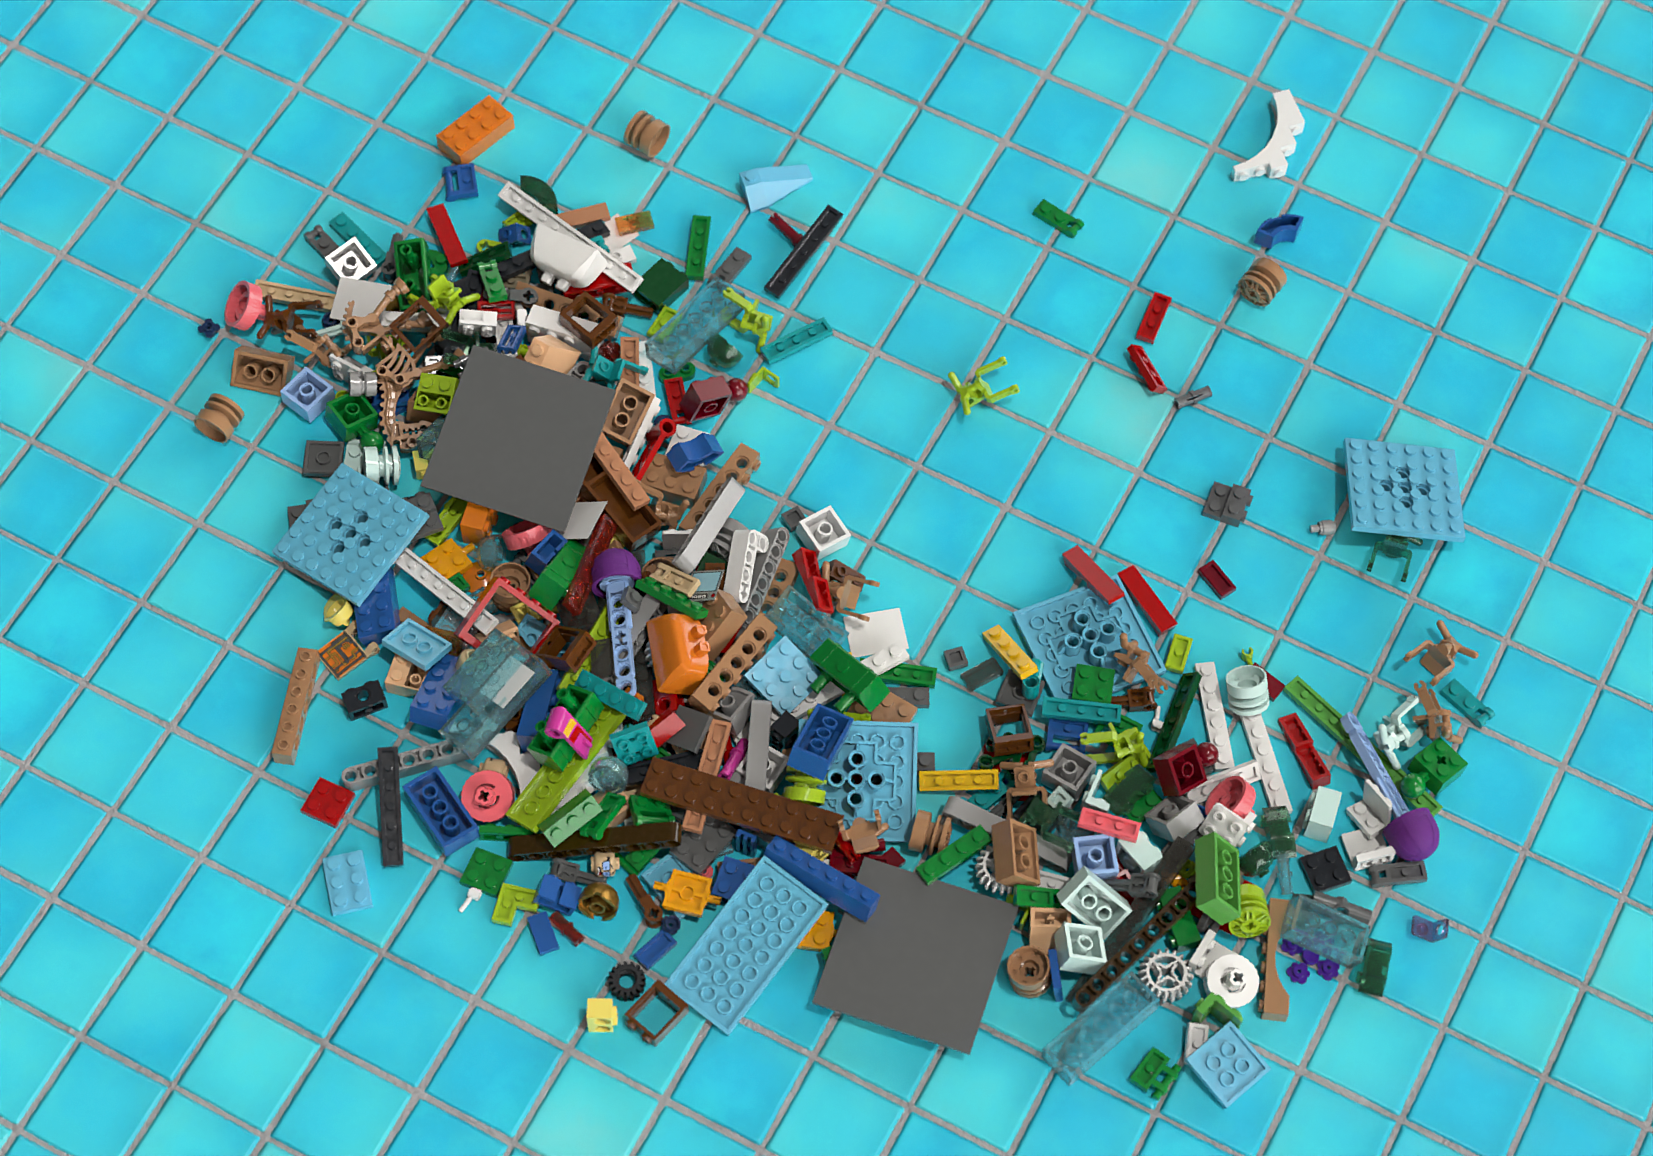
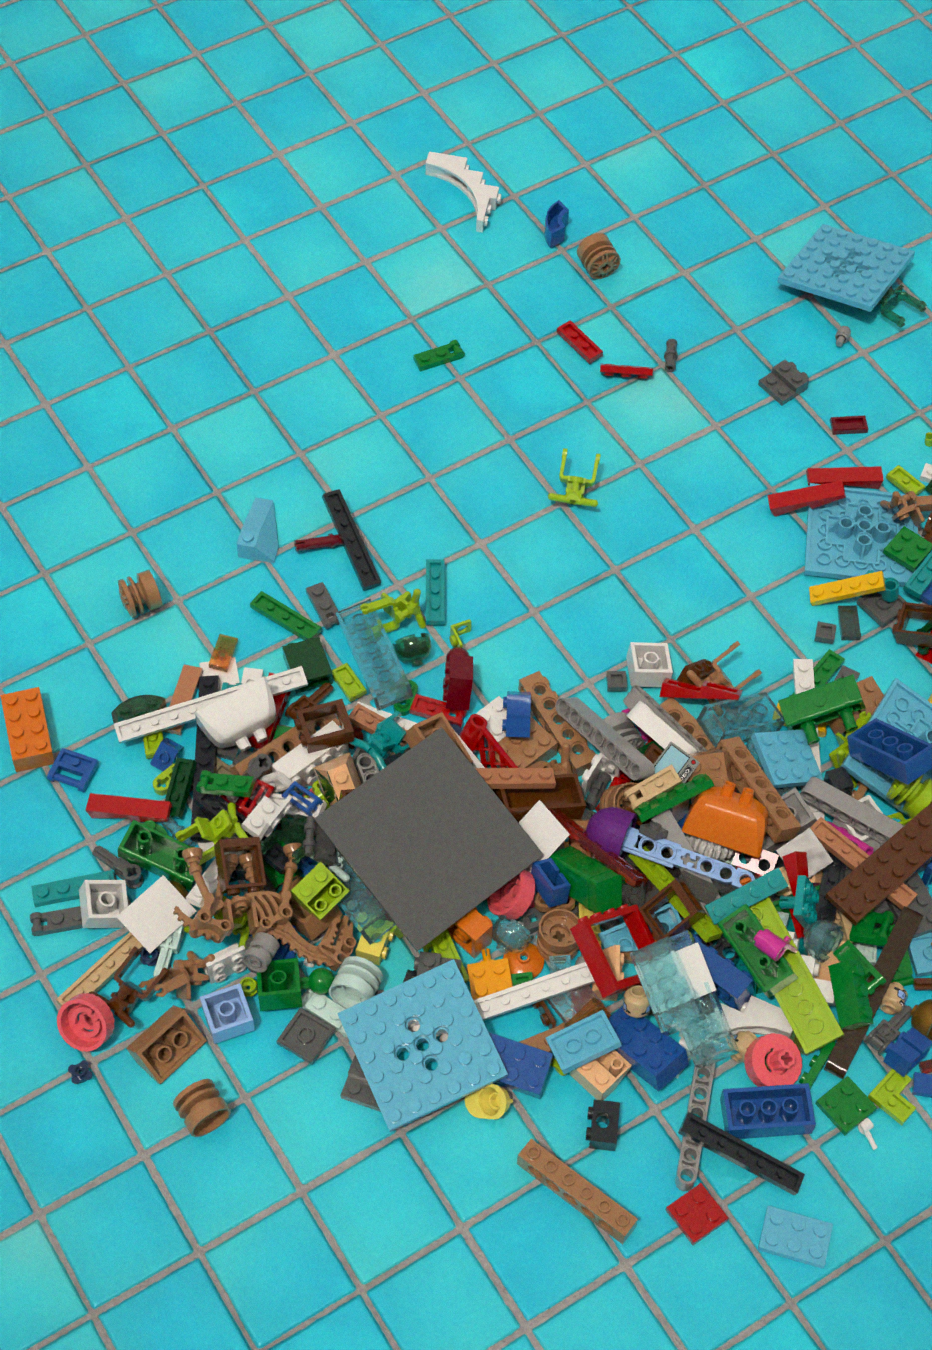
camera: 60 degrees left, 5 degrees down
(344, 653) = (537, 1119): flag -> none
(873, 636) = (771, 680): white sticker -> none

